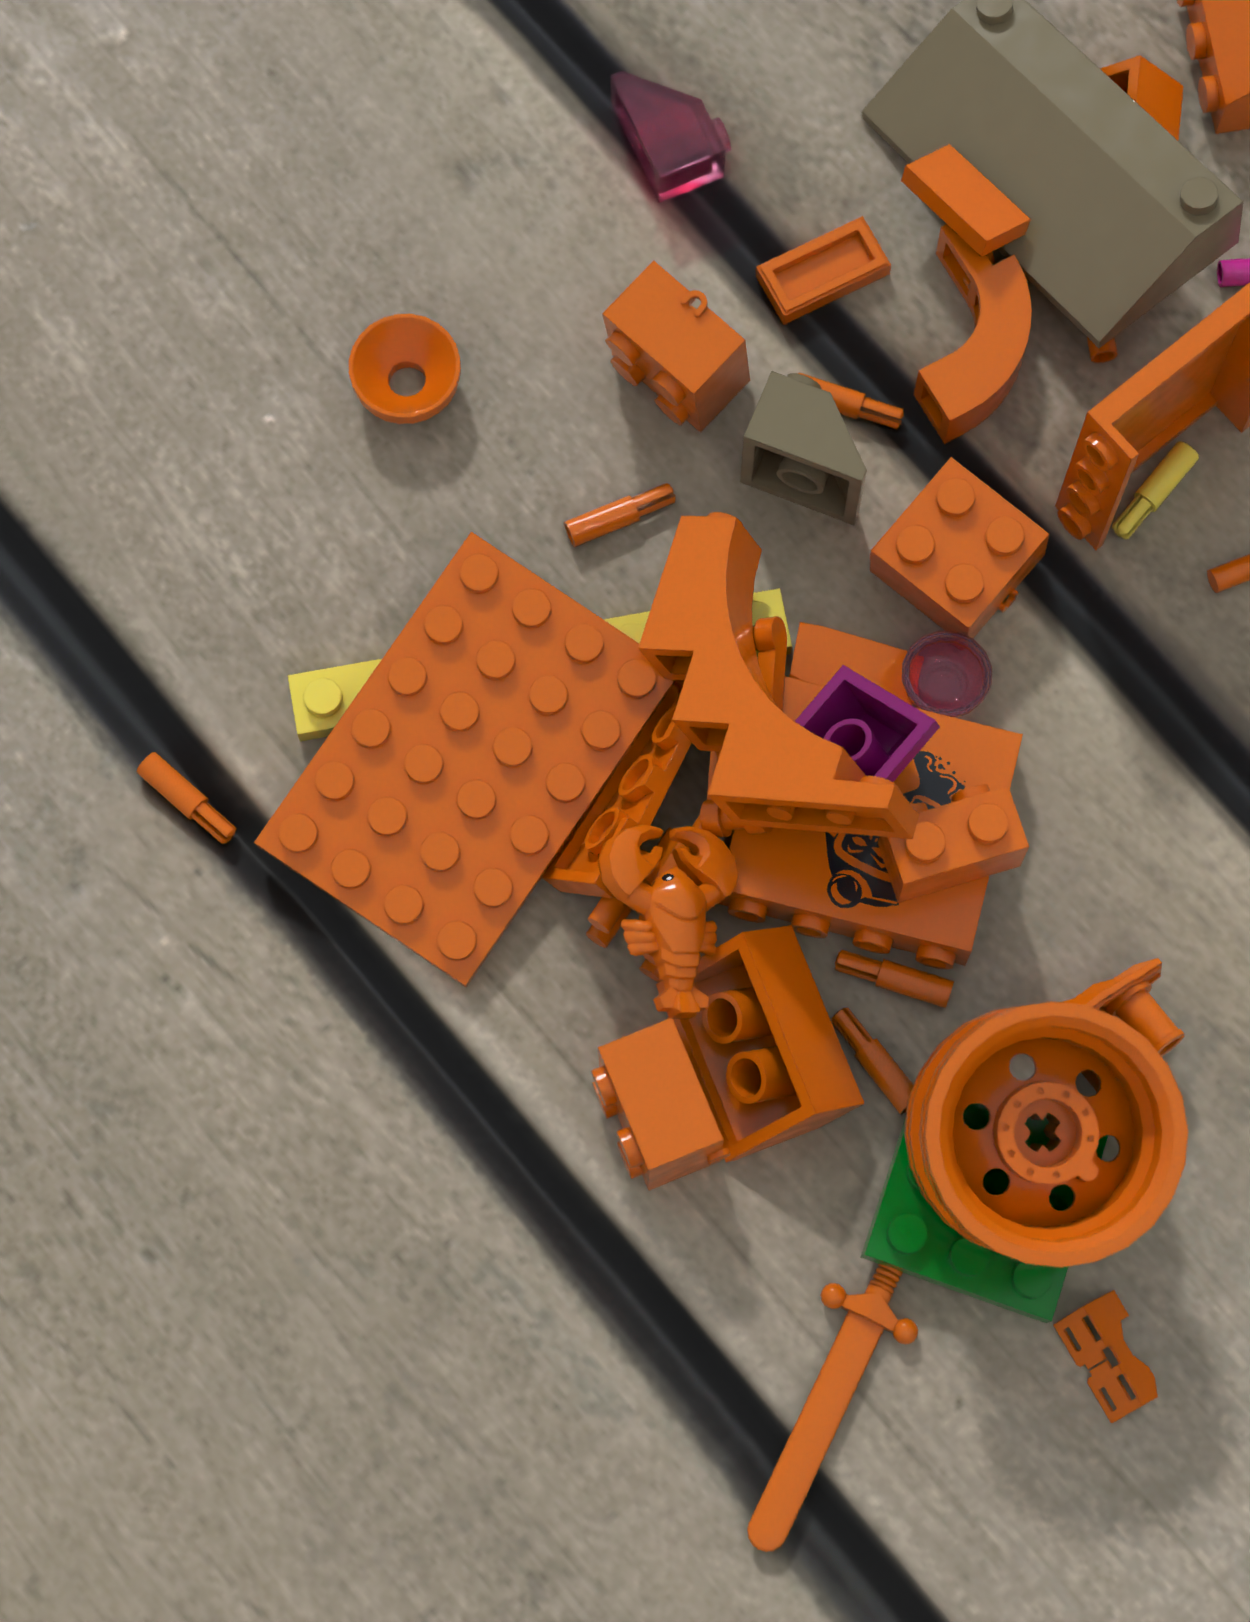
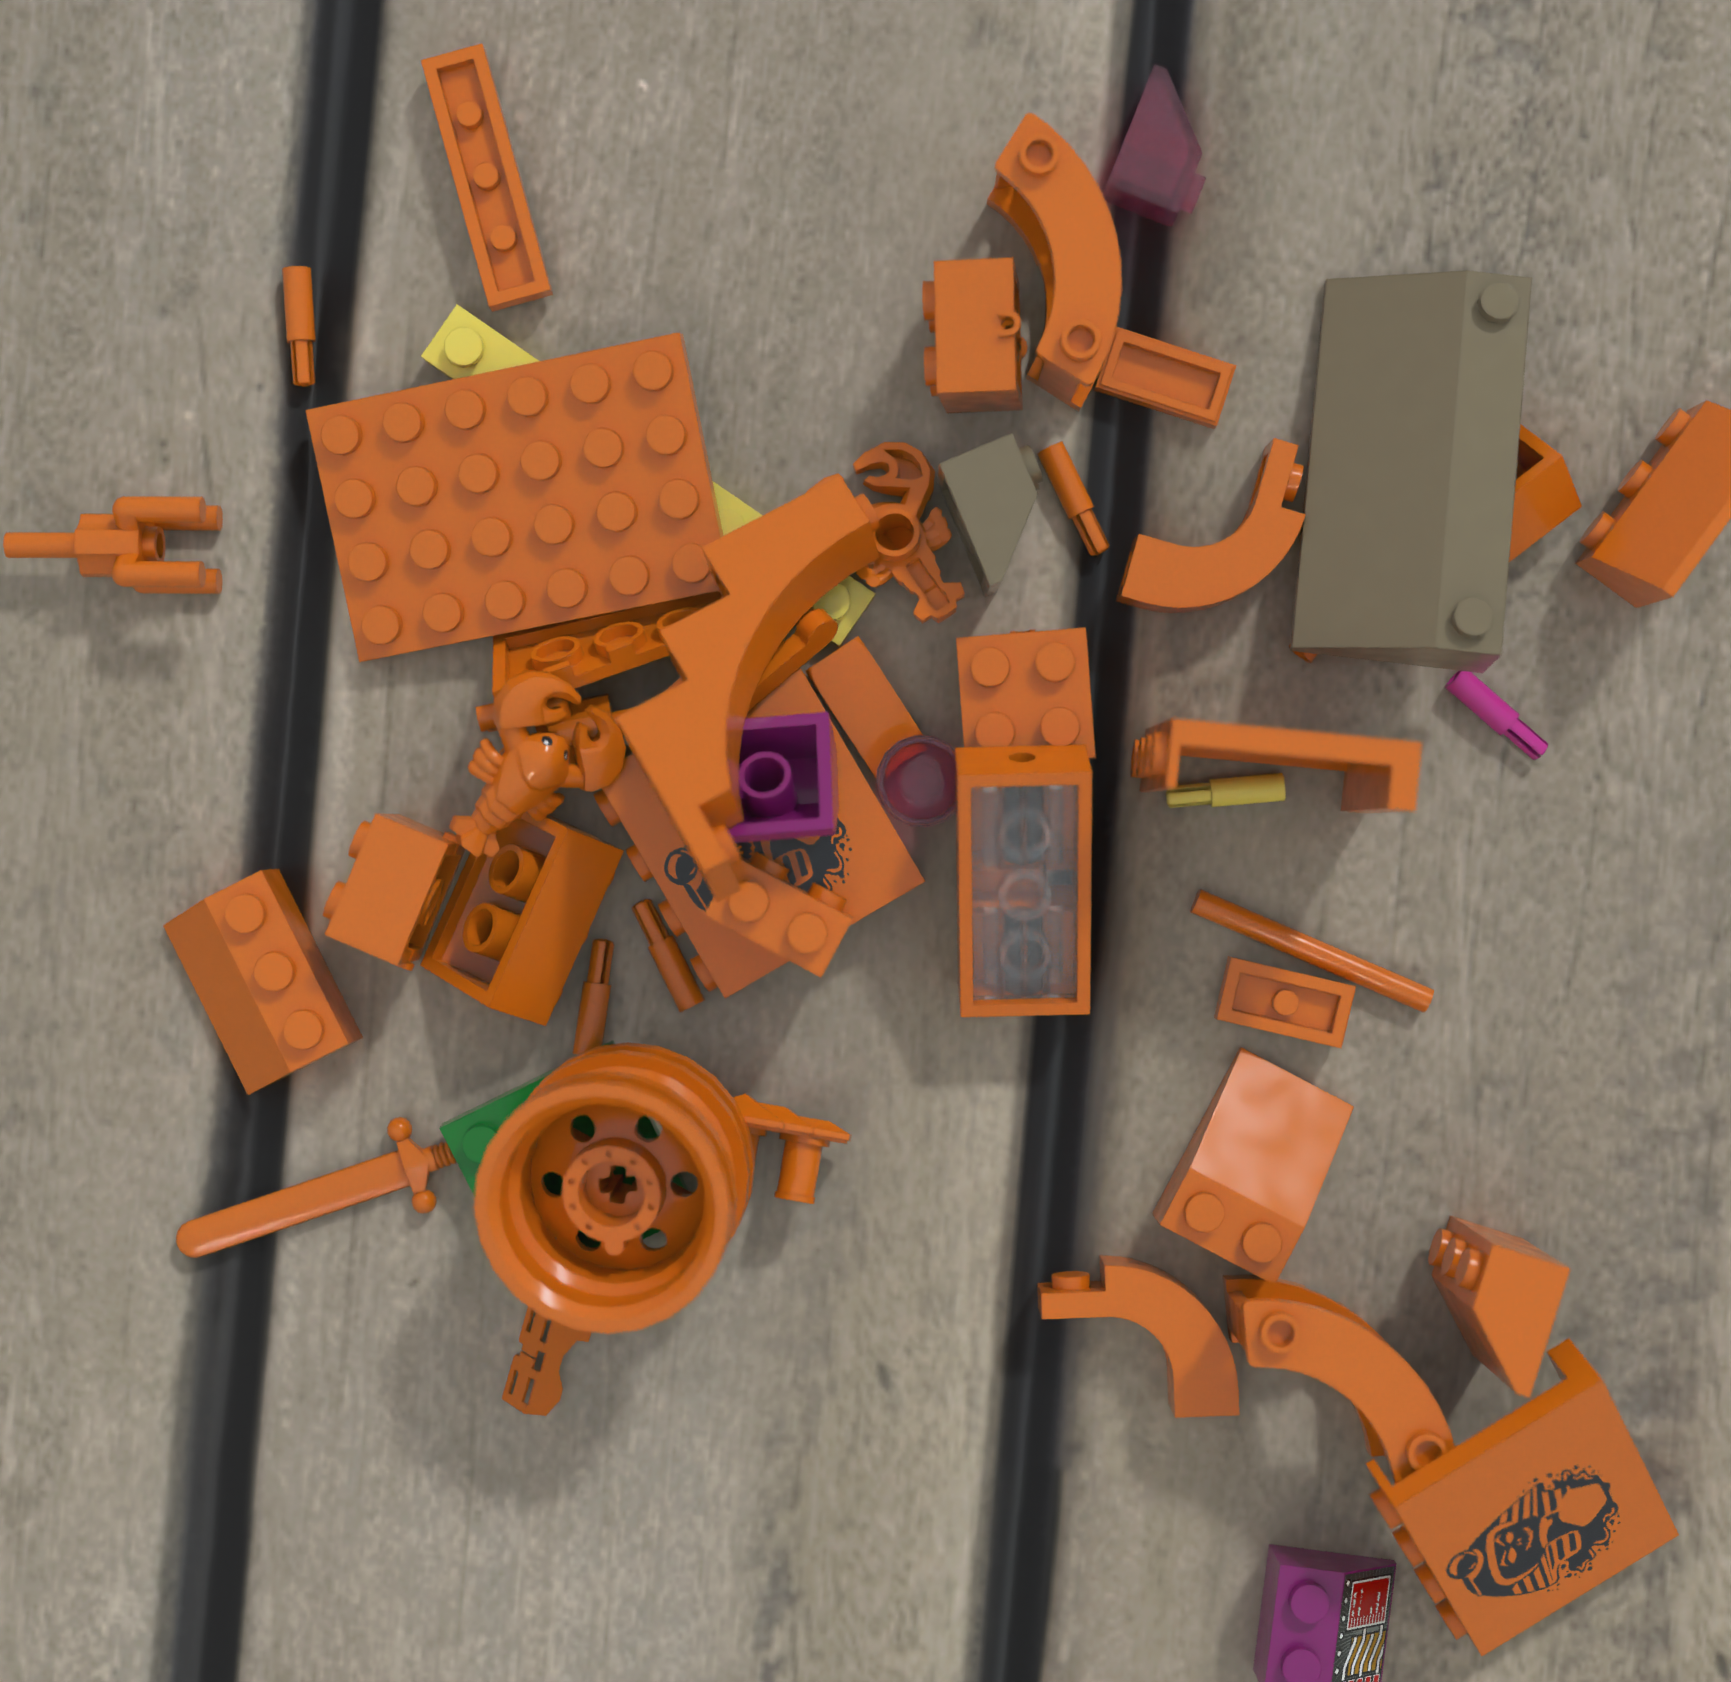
camera: 45 degrees right, 15 degrees up
(218, 1059) = (131, 544): none -> orange plant
(224, 572) = (487, 177): none -> orange plate
(398, 344) = (765, 117): orange piece -> none
(617, 514) = (819, 417): orange pin -> none
(623, 1285) = (262, 979): none -> orange slope
(696, 230) = (1073, 240): none -> orange fence
(770, 525) = (903, 540): none -> orange animal
(965, 200) = (1312, 436): orange tile -> none
(1090, 663) = (1023, 880): none -> clear brick

